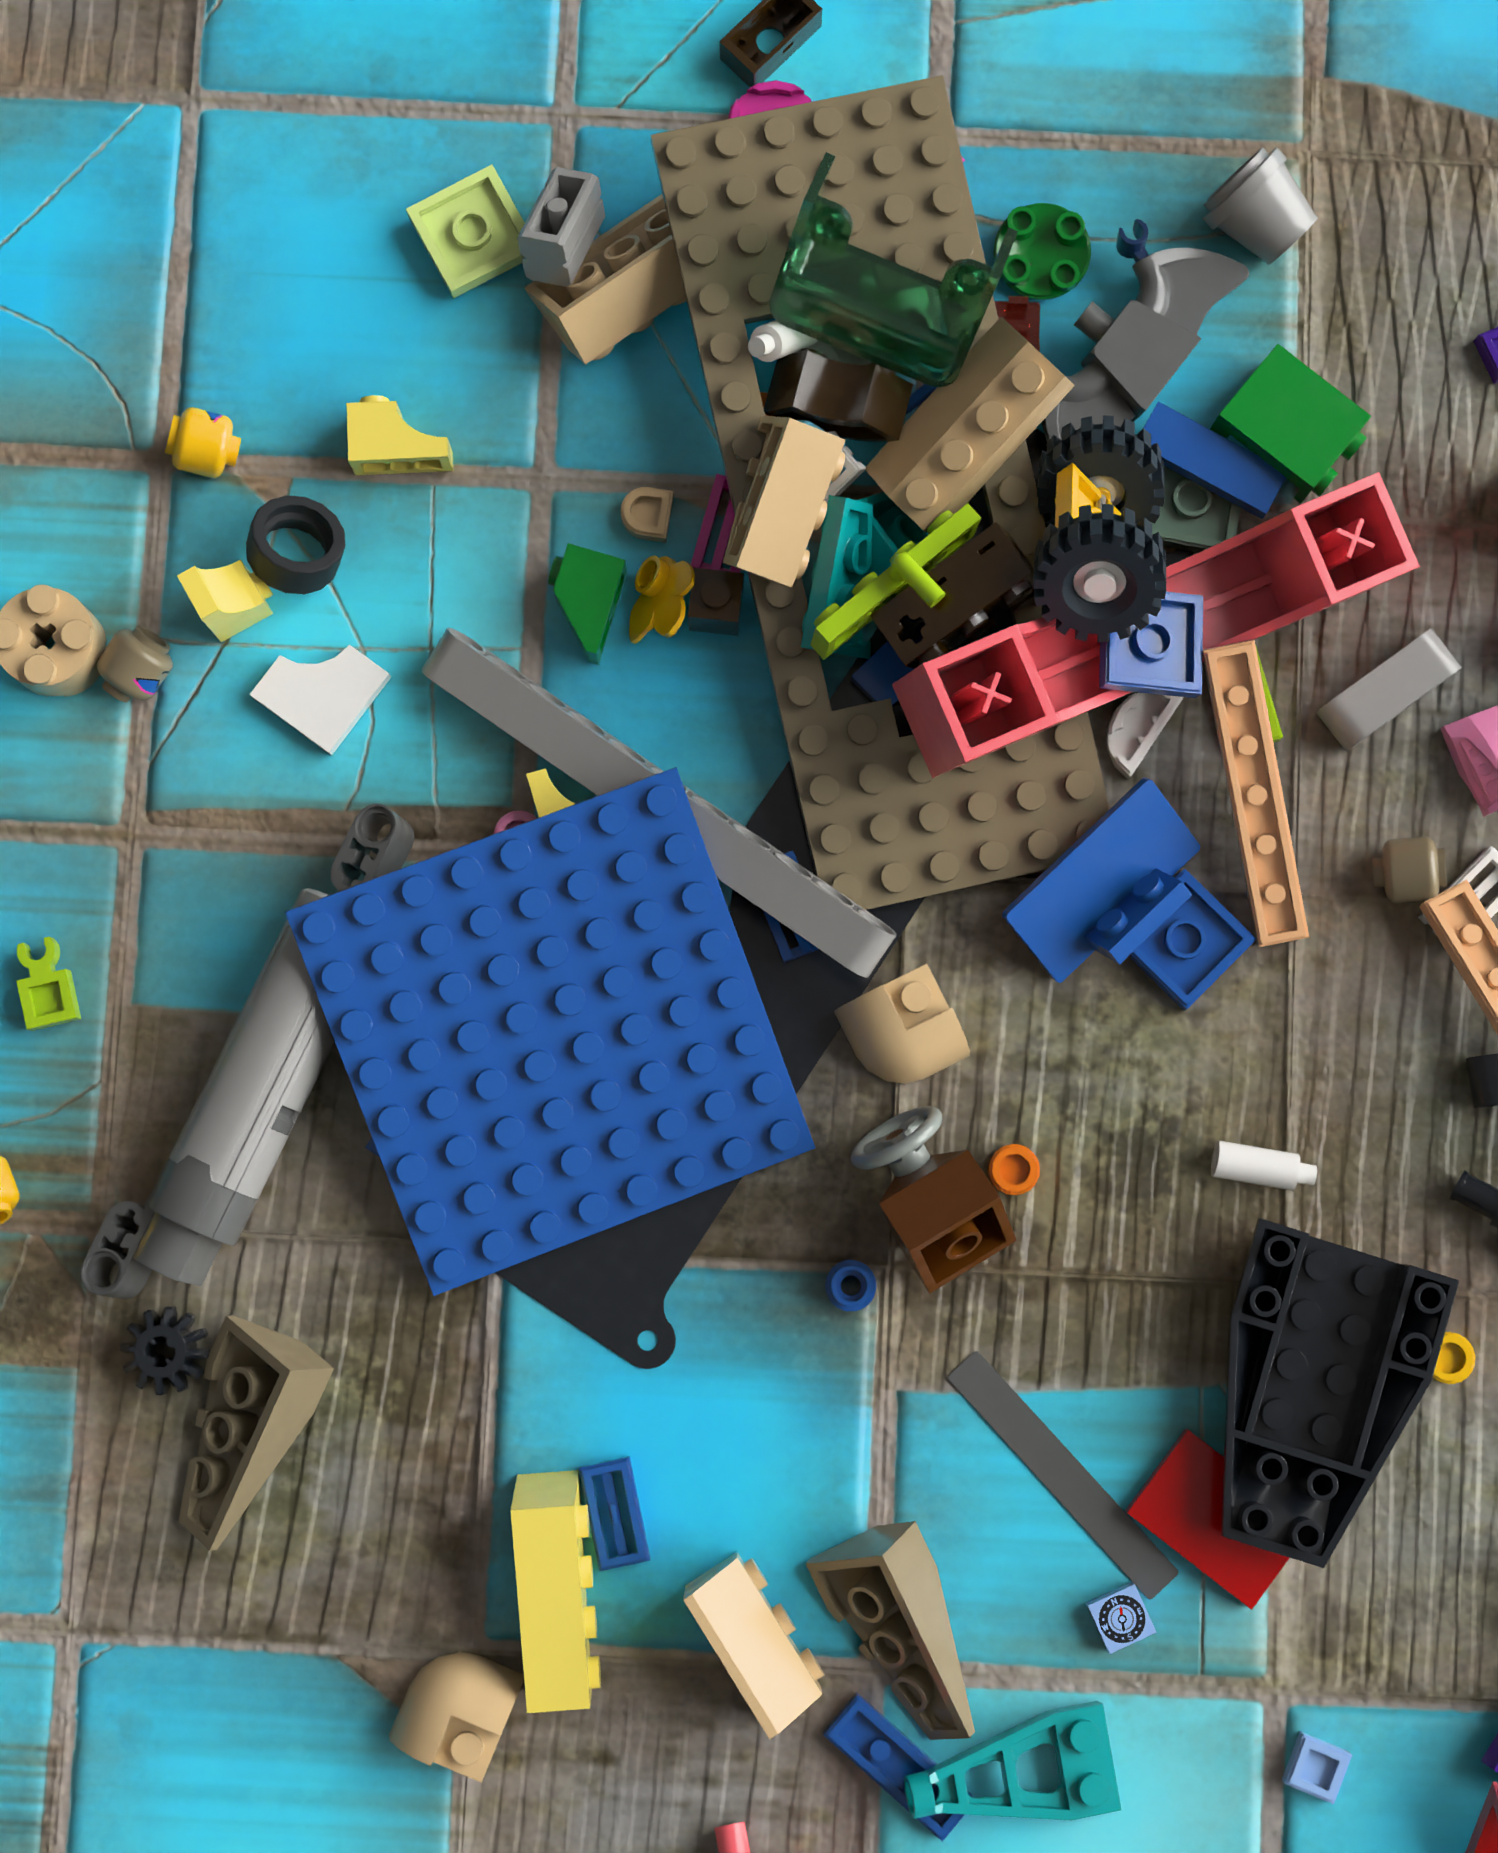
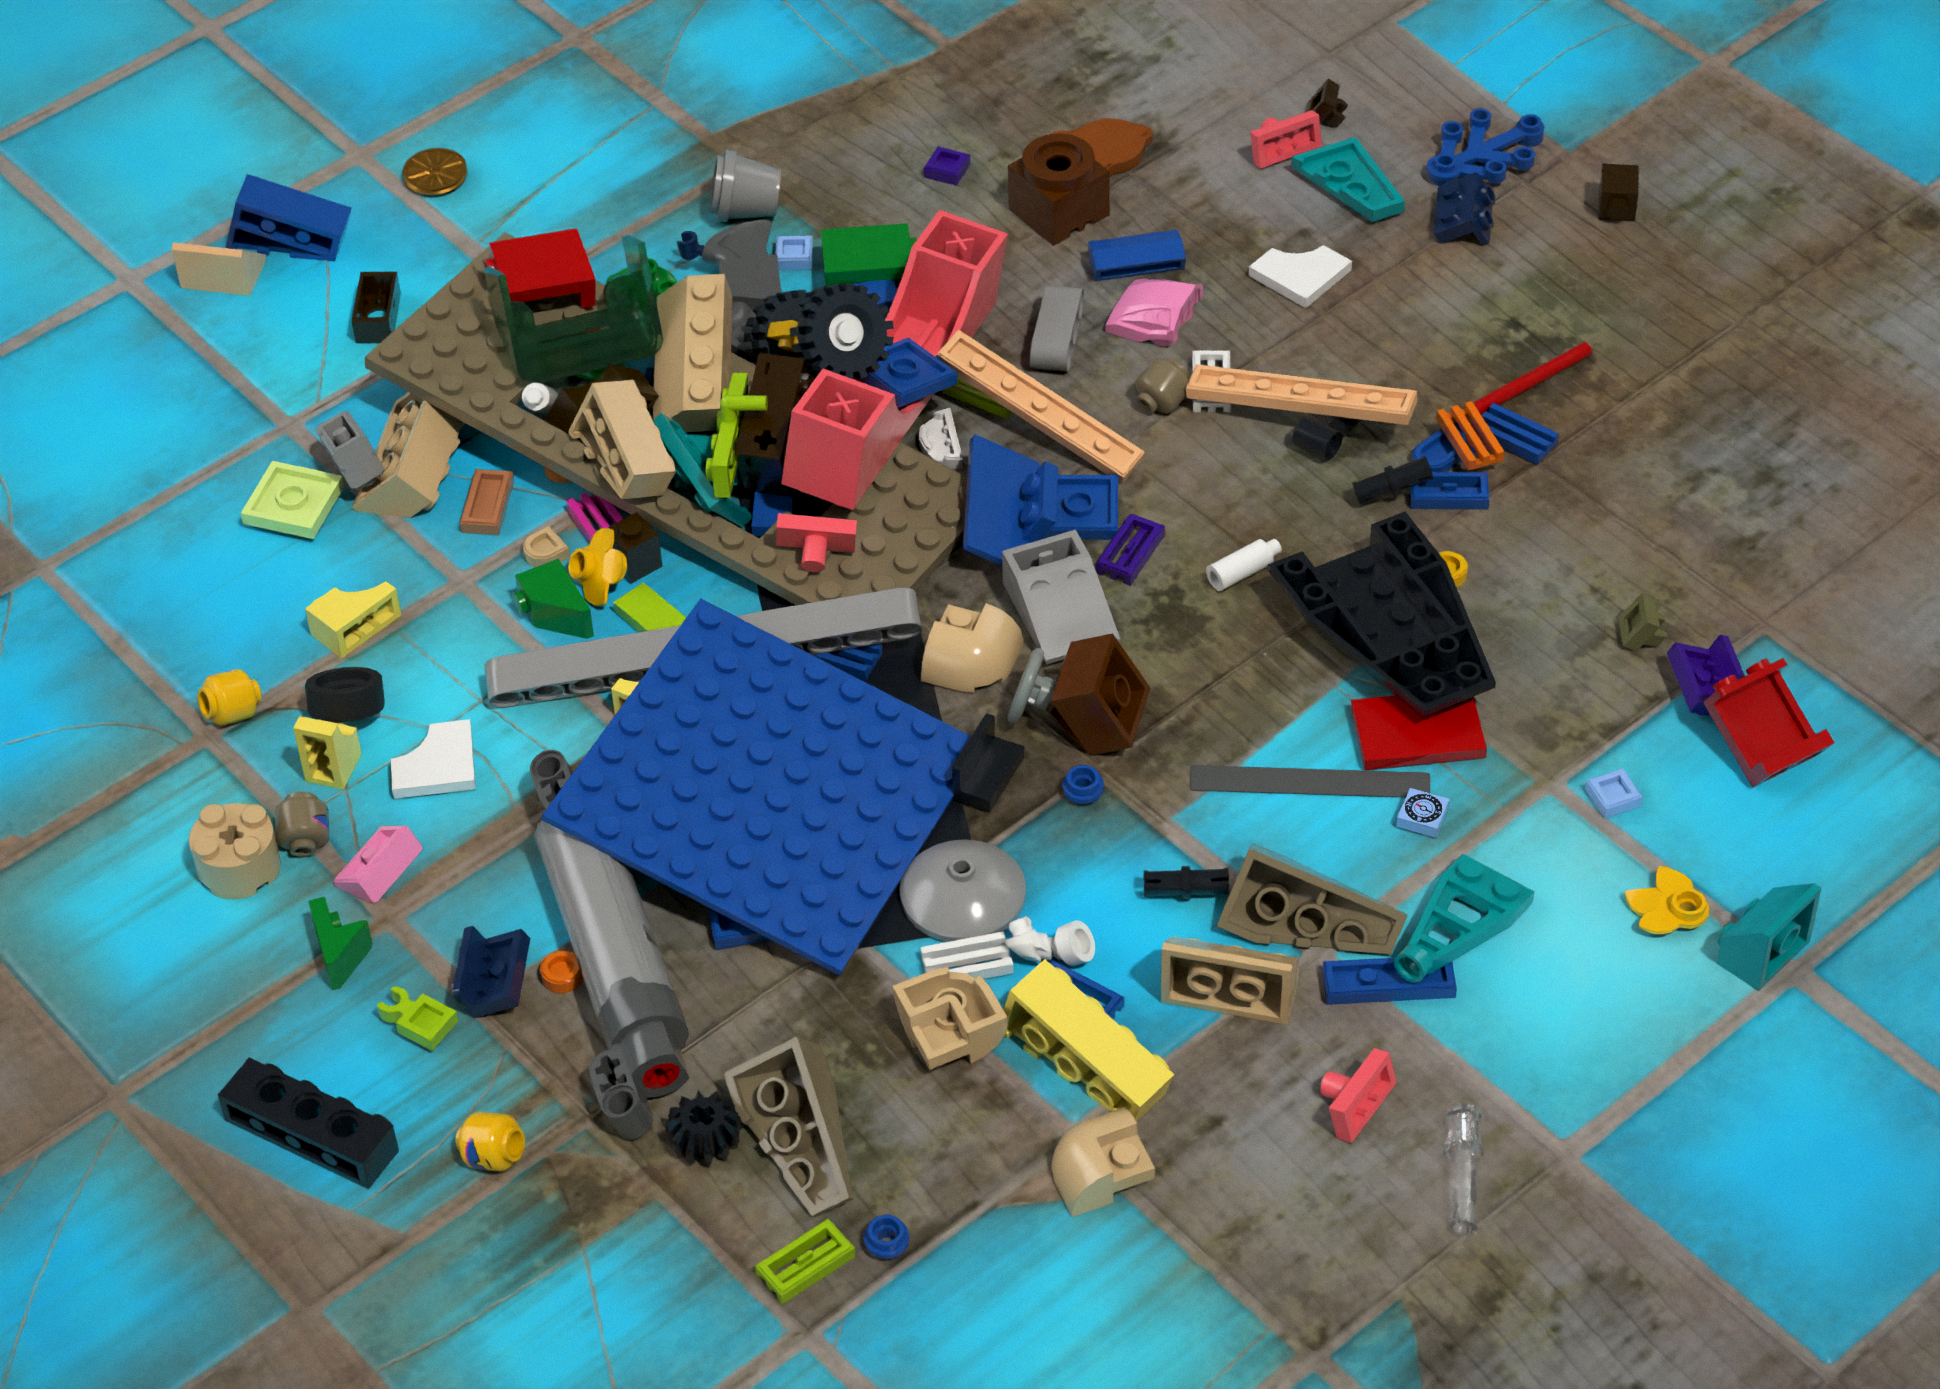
camera: 40 degrees left, 35 degrees down
(37, 843) = (340, 945): none -> green slope
(145, 997) = (490, 971): none -> dark blue bracket
(171, 766) = (379, 863): none -> bright pink slope
(173, 1567) = (810, 1266): none -> lime tile
(201, 1621) = (886, 1227): none -> blue plate
(206, 1045) = (561, 972): none -> orange tile
(469, 1446) = (950, 1016): none -> tan brick
(523, 1357) = (968, 952): none -> white tile
(650, 400) = (487, 502): none -> nougat tile
(656, 1463) = (1071, 942): none -> white arm
(665, 700) = (647, 610): none -> lime tile
(671, 1290) = (965, 904): none -> light grey dish
(784, 1185) = (985, 766): none -> black panel
(828, 1490) = (1186, 882): none -> black pin
(867, 777) = (815, 537): none -> coral tile
(909, 180) = (545, 267): none -> red panel
(1040, 1053) = (1057, 593): none -> light grey slope
(1138, 1053) = (1119, 569): none -> dark purple tile
(1240, 332) = (794, 252): none -> light blue tile

